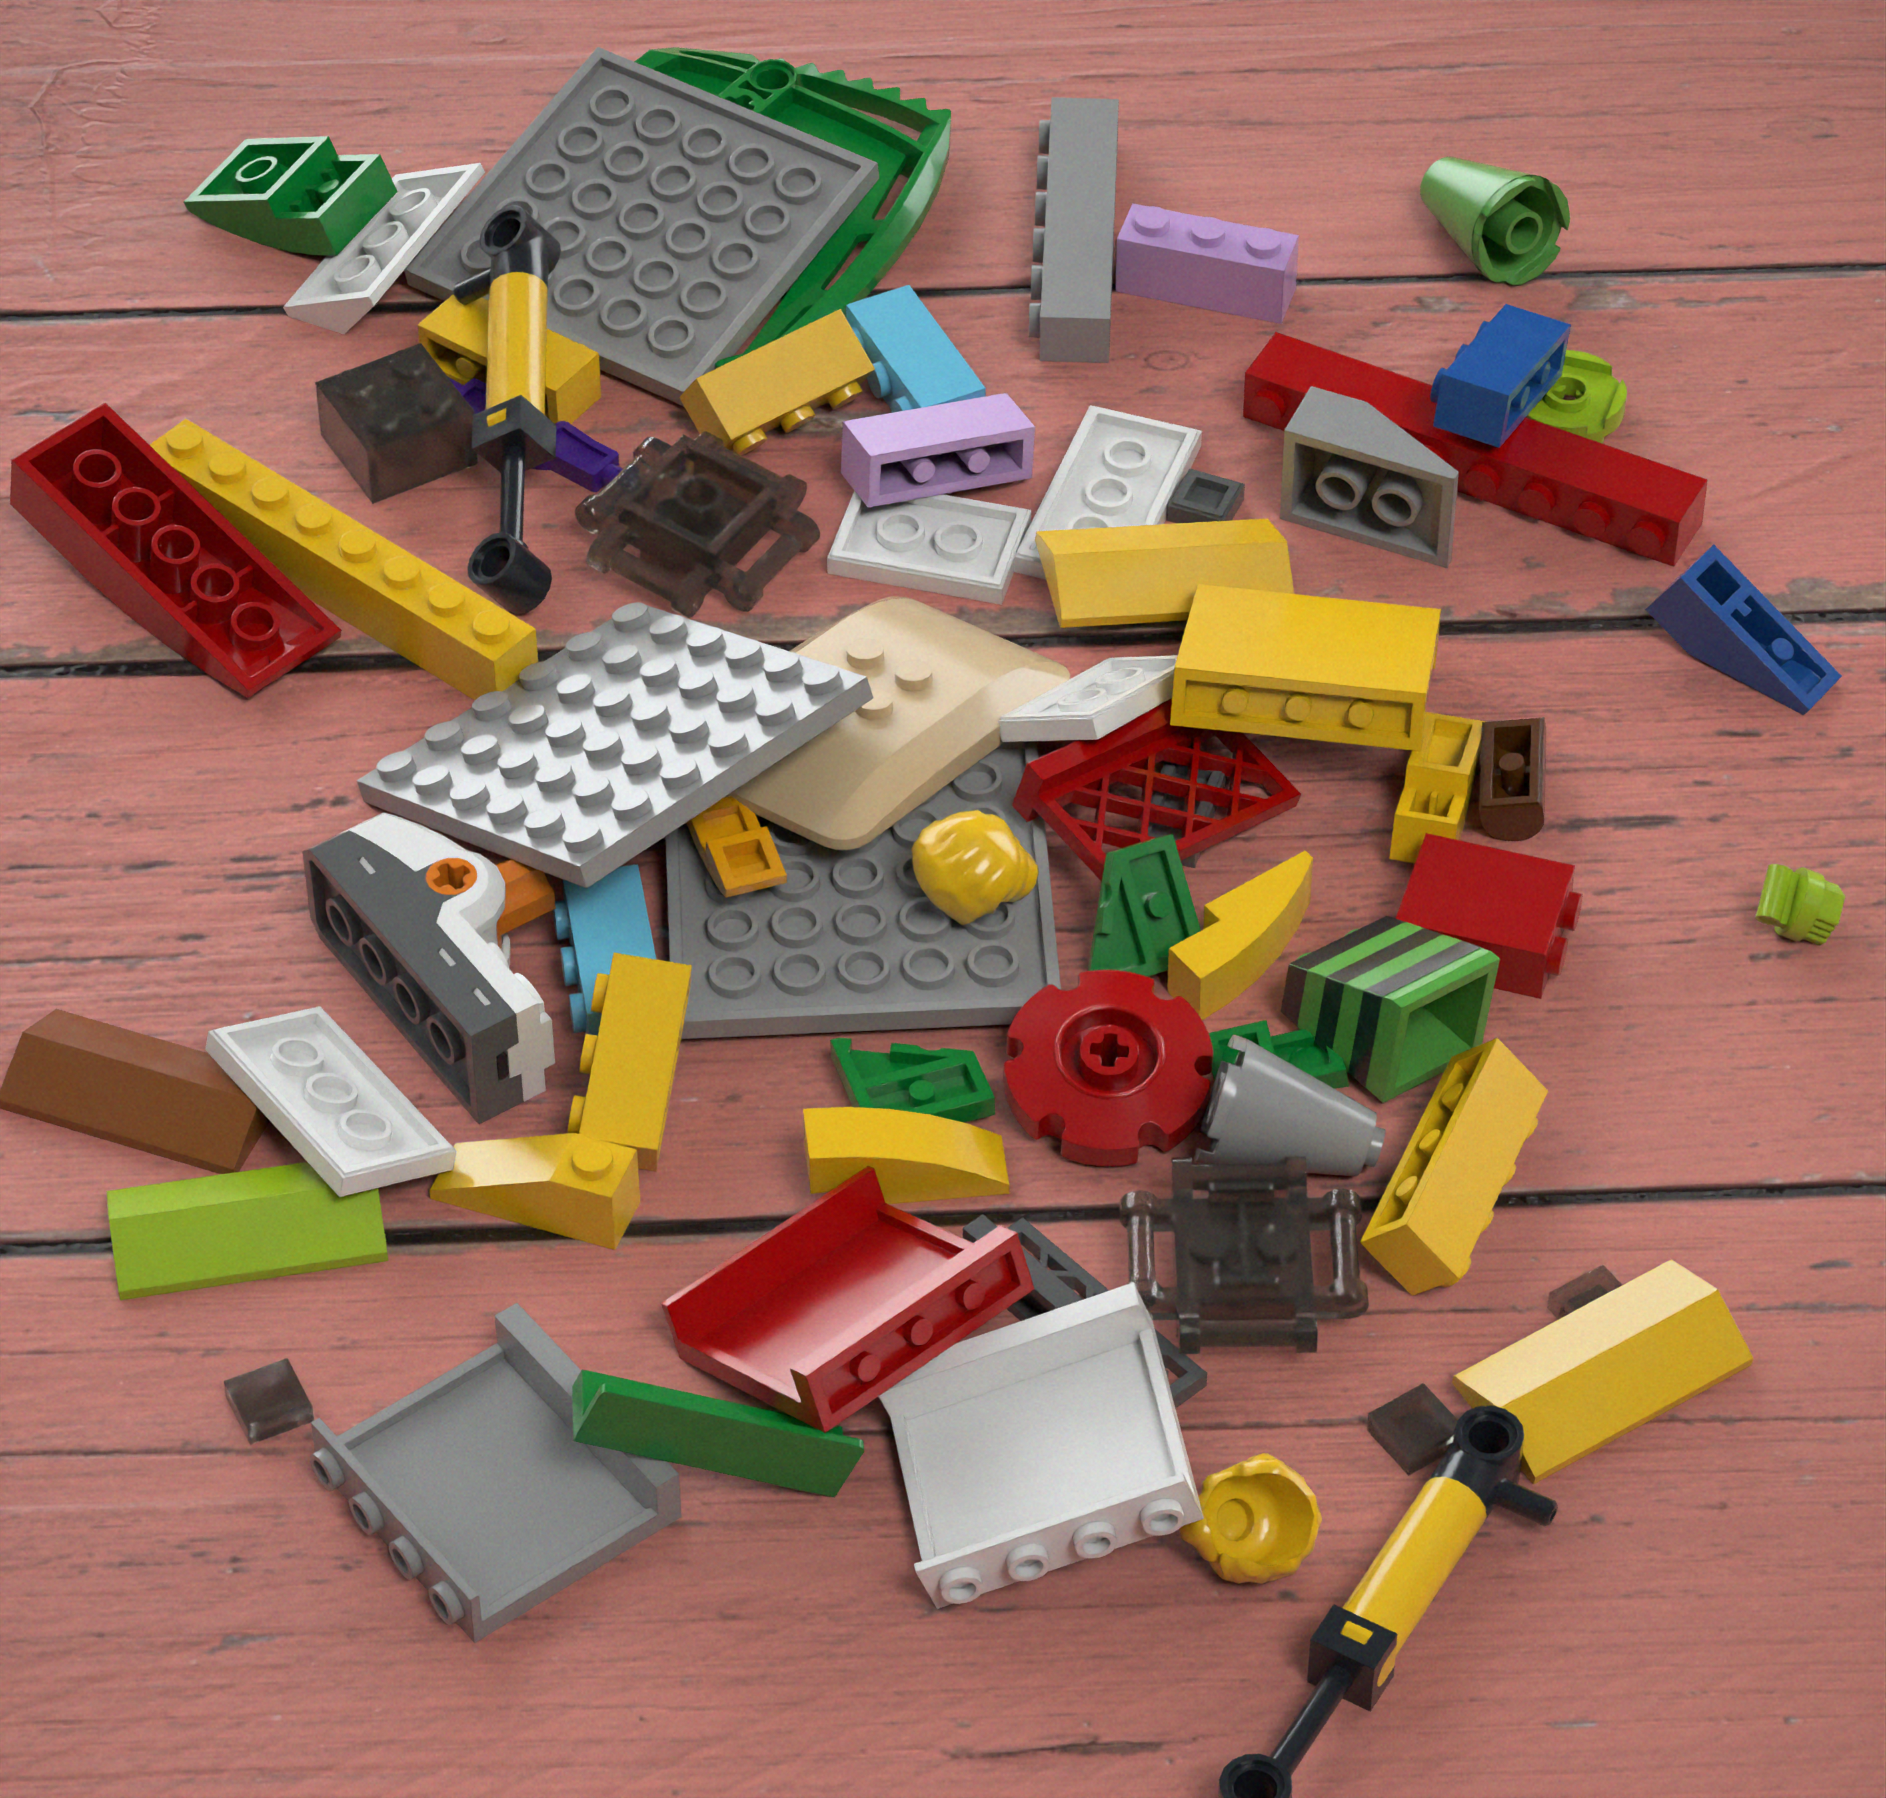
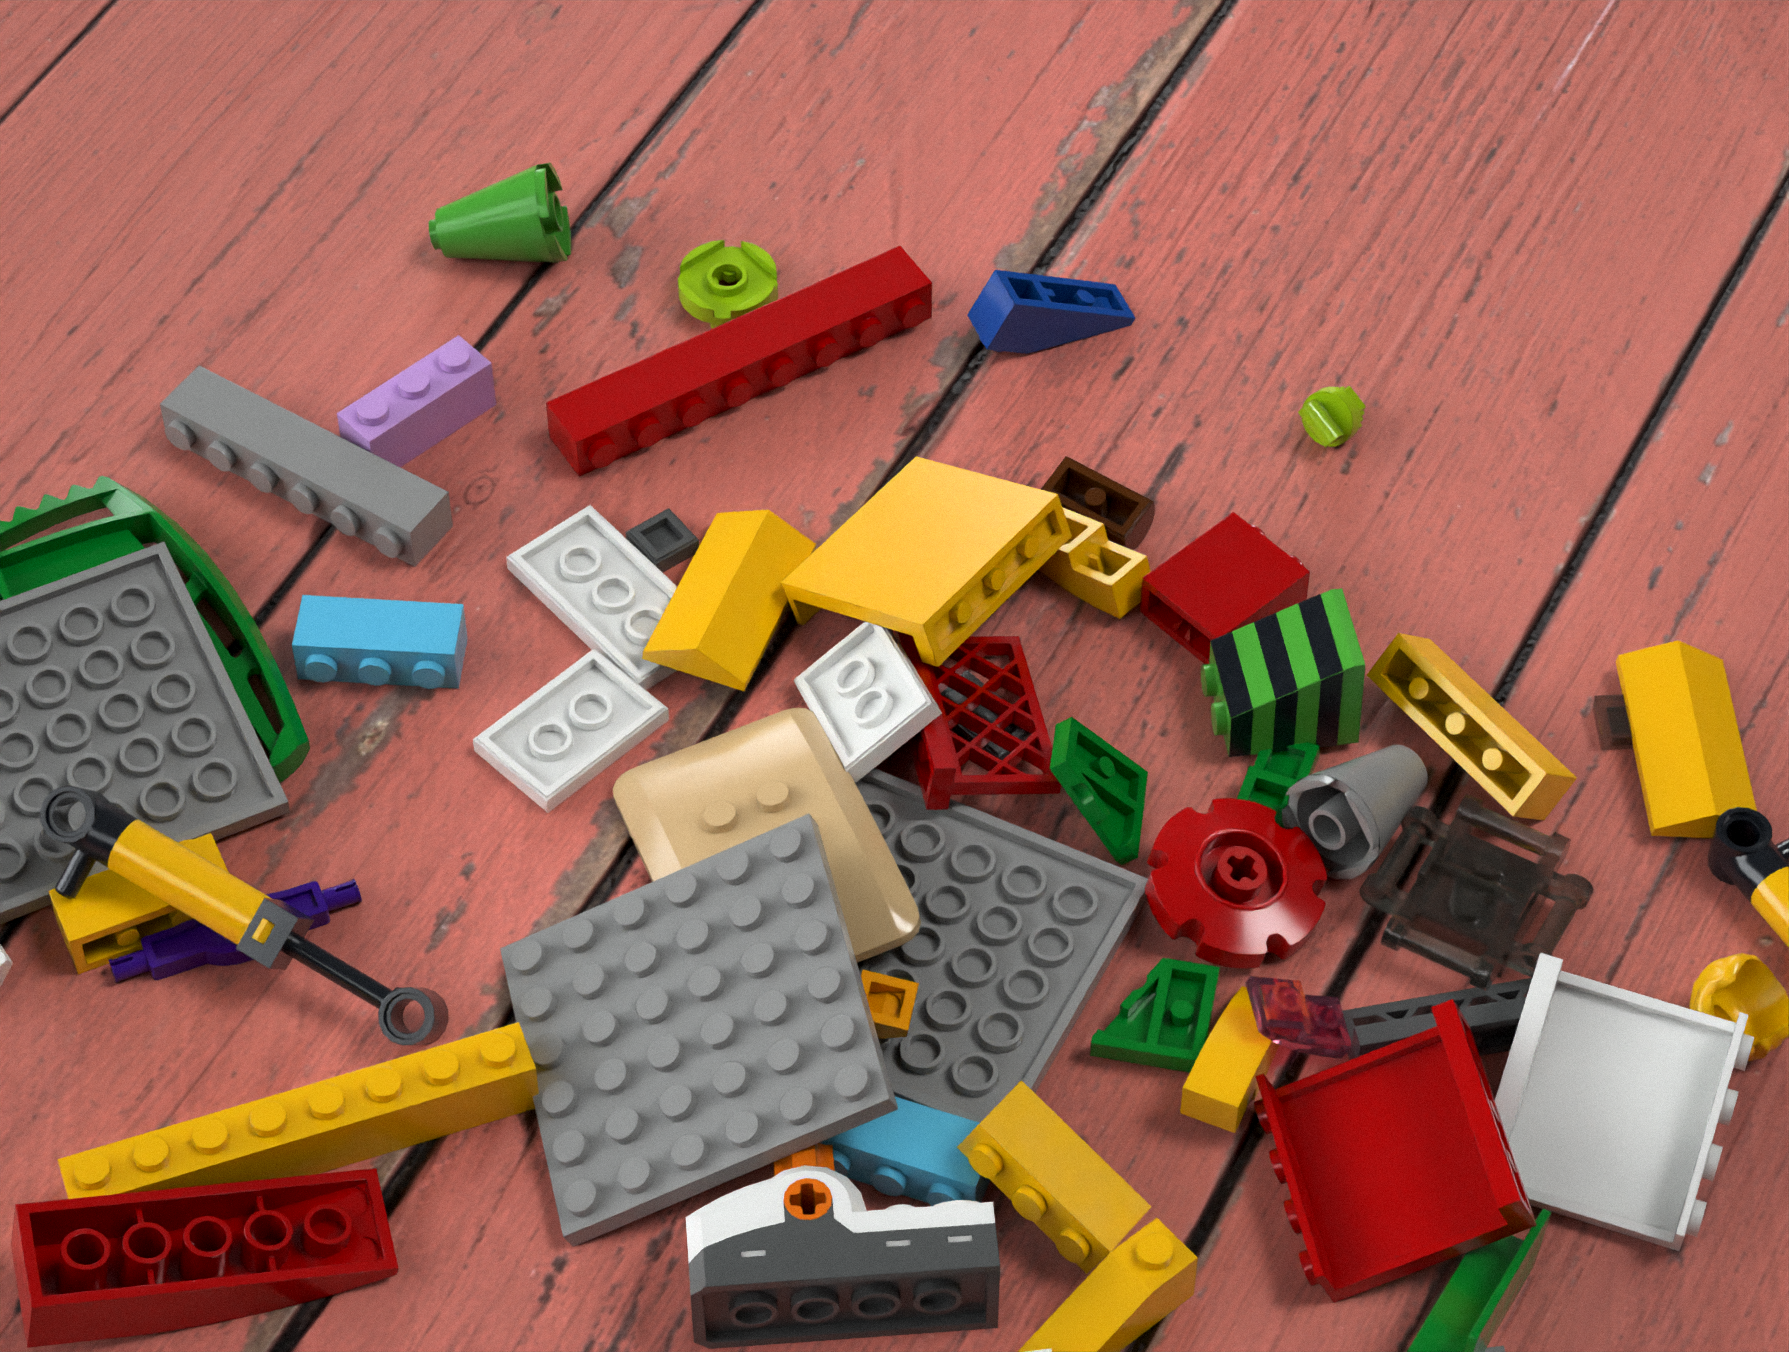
camera: 60 degrees left, 5 degrees up
(396, 423) = (160, 1015): clear smoke brick -> none
(693, 519) = (448, 864): clear smoke brick -> none
(779, 384) = (336, 736): yellow brick -> none
(937, 449) = (497, 670): lavender brick -> none
(962, 1166) = (1298, 1020): none -> clear pink slope
(972, 865) = (993, 859): yellow hair -> none
(1240, 936) = (1153, 739): yellow slope -> none
(1366, 479) = (749, 428): light grey slope -> none
(1413, 1428) = (1679, 878): clear smoke tile -> none
(1500, 375) = (720, 295): blue brick -> none

